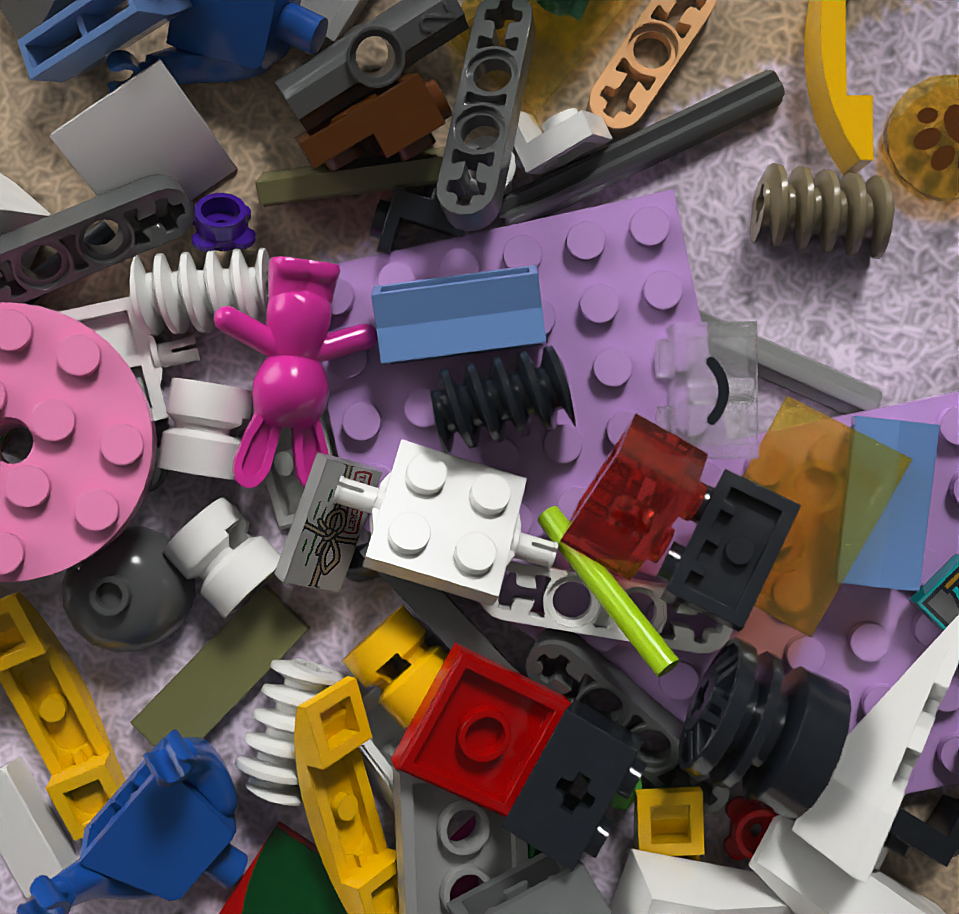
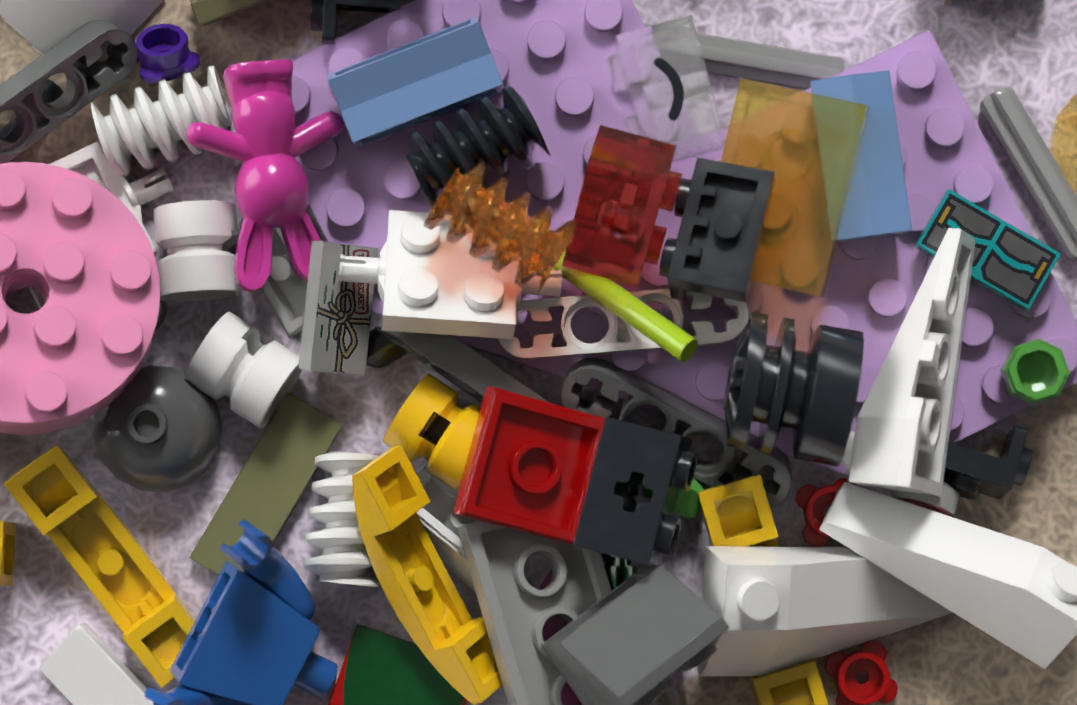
camera: 15 degrees left, 5 degrees down
(512, 496) = (500, 226): none -> clear orange piece

